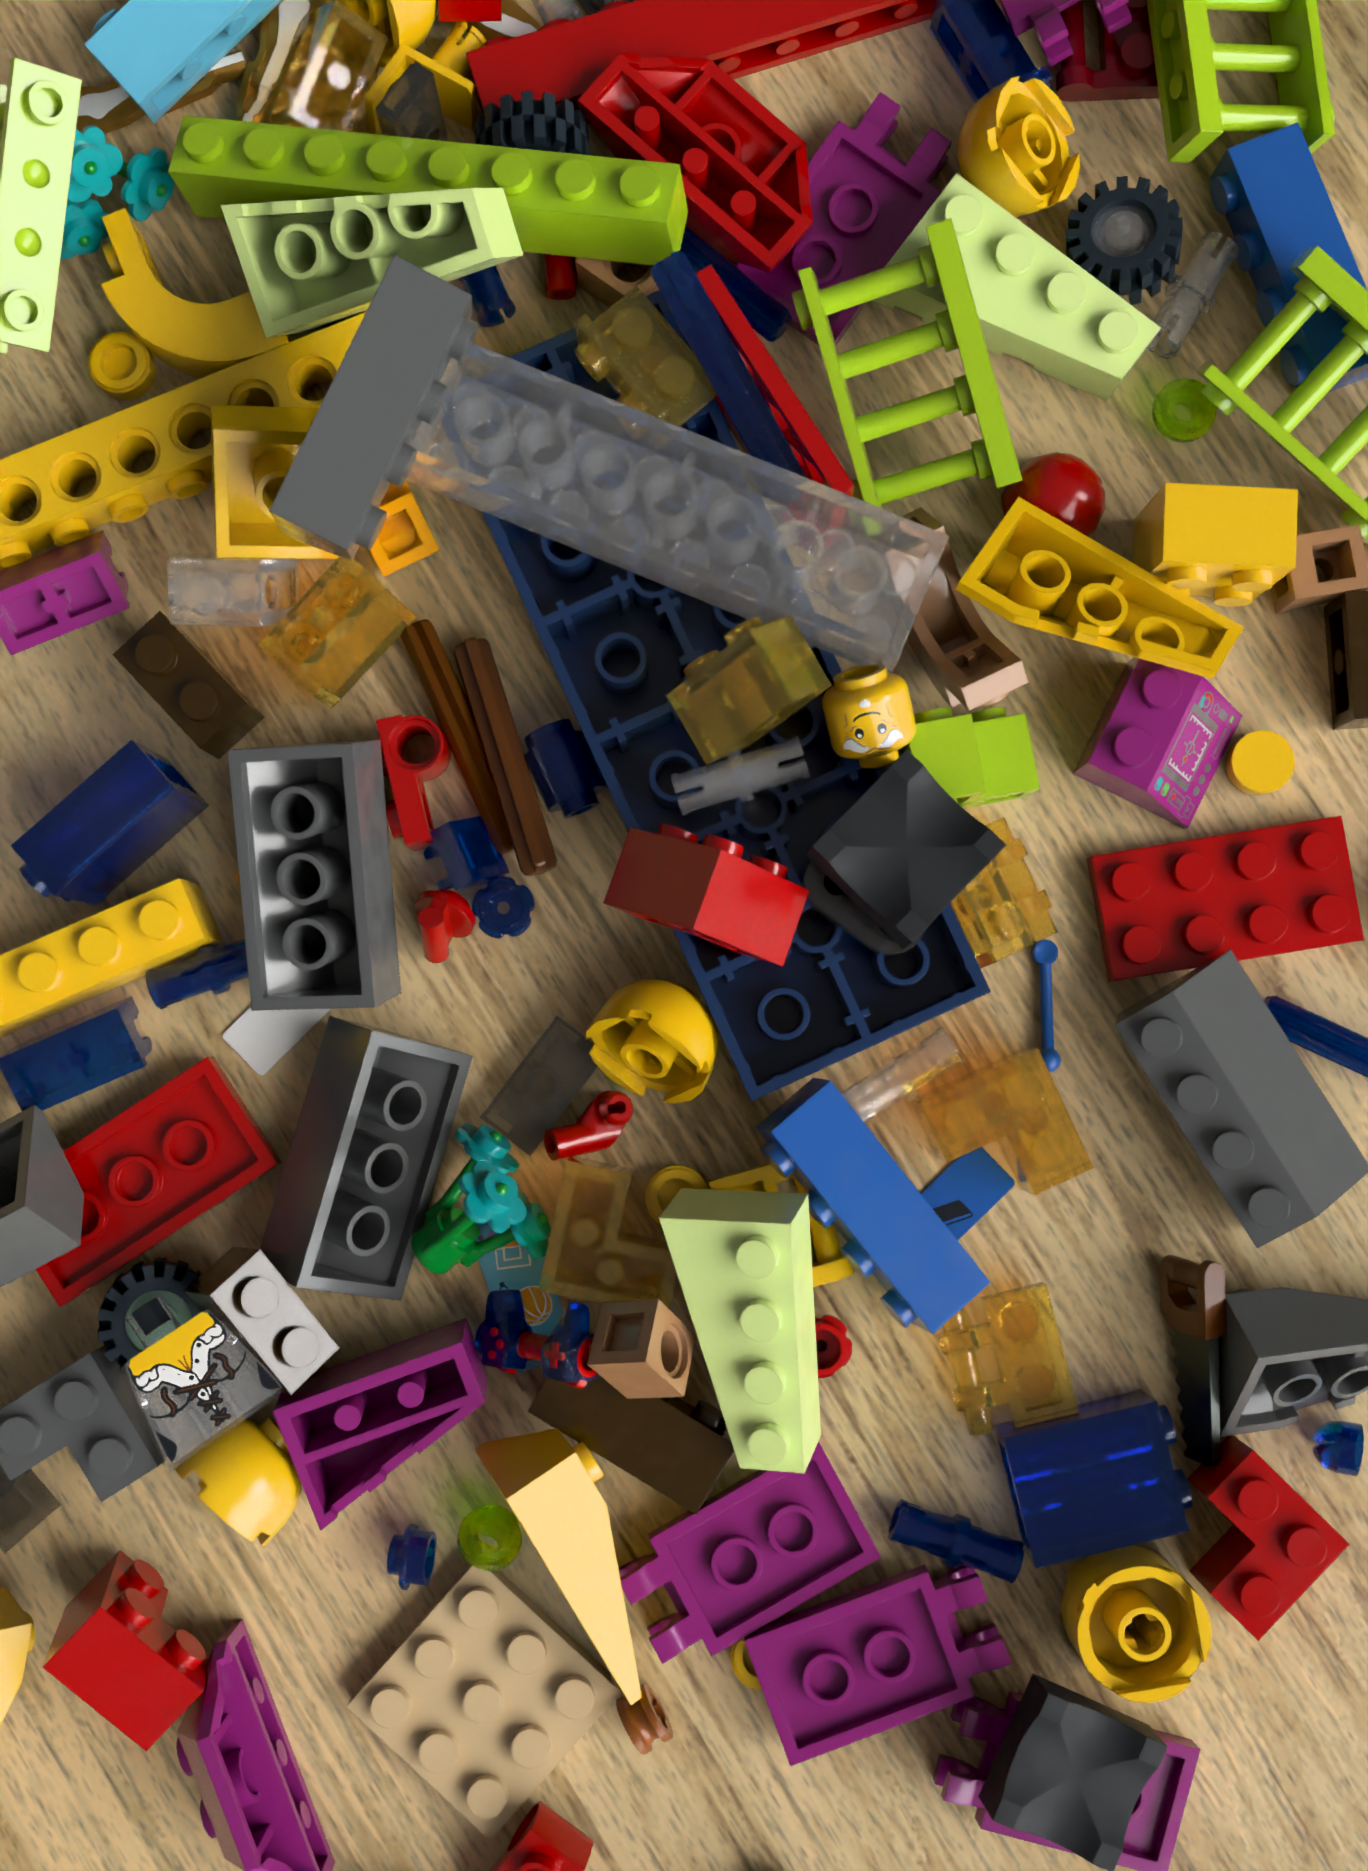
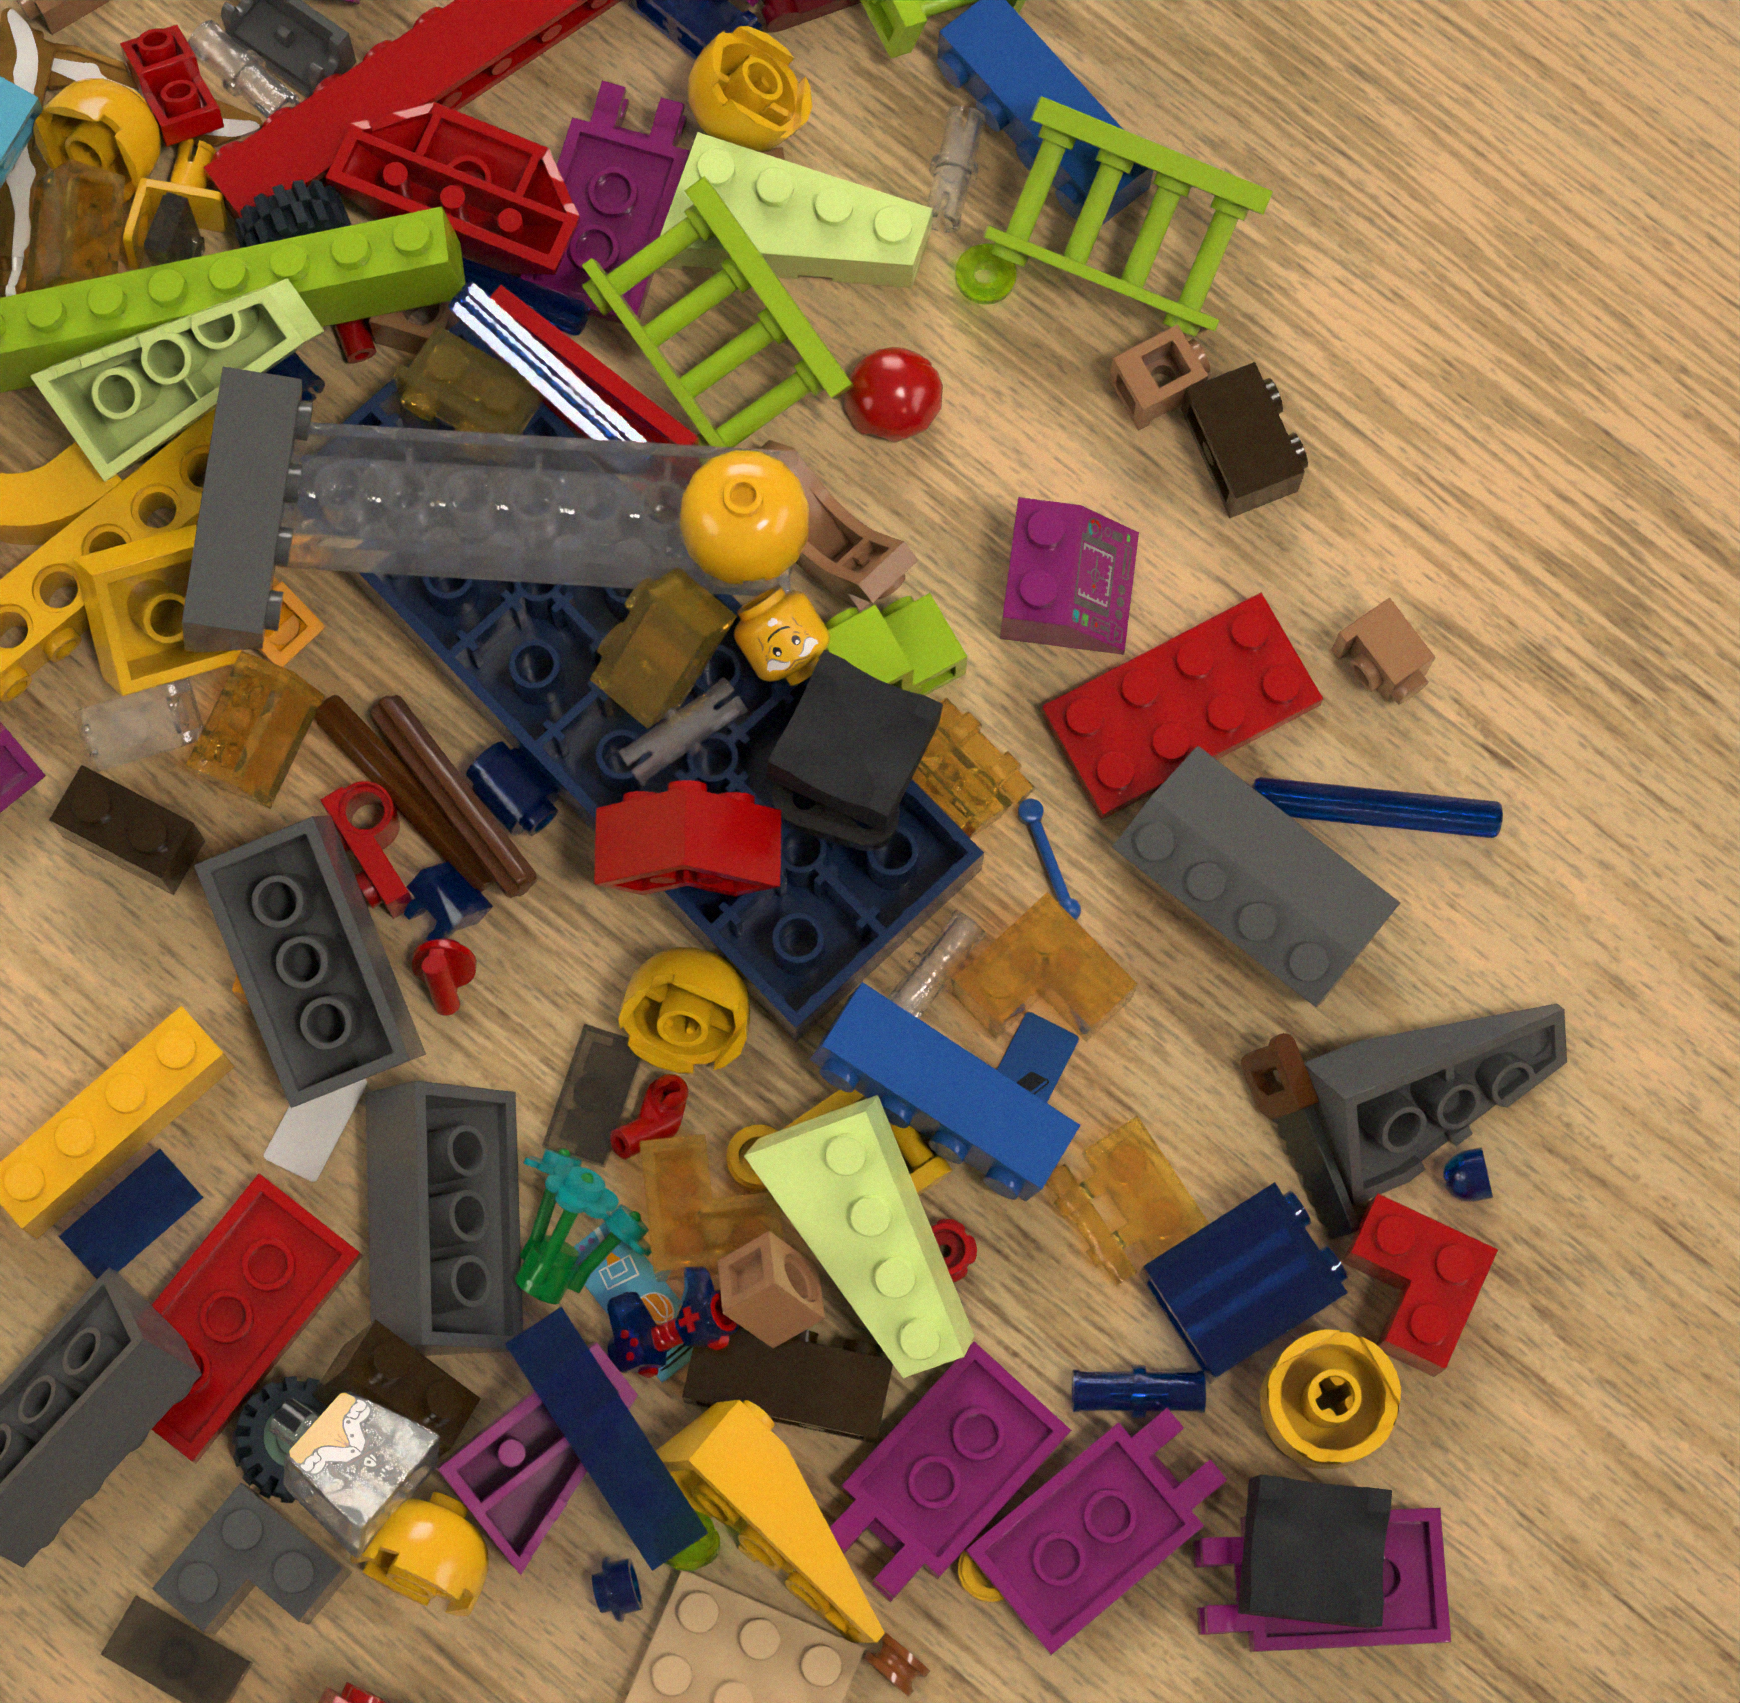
camera: 25 degrees left, 10 degrees down
(108, 826) = (97, 981): clear blue brick -> none
(208, 971) = (228, 1097): clear blue pin -> none
(439, 1436) = (606, 1438): none -> clear blue tile
(486, 907) = (504, 956): clear blue plate -> none
(873, 587) = (744, 517): none -> yellow cylinder
(1077, 589) = (932, 462): yellow wedge -> none
(1126, 237) = (875, 138): black wheel -> none
(1218, 539) = (1049, 384): yellow brick -> none
(1260, 762) = (1170, 570): yellow tile -> none

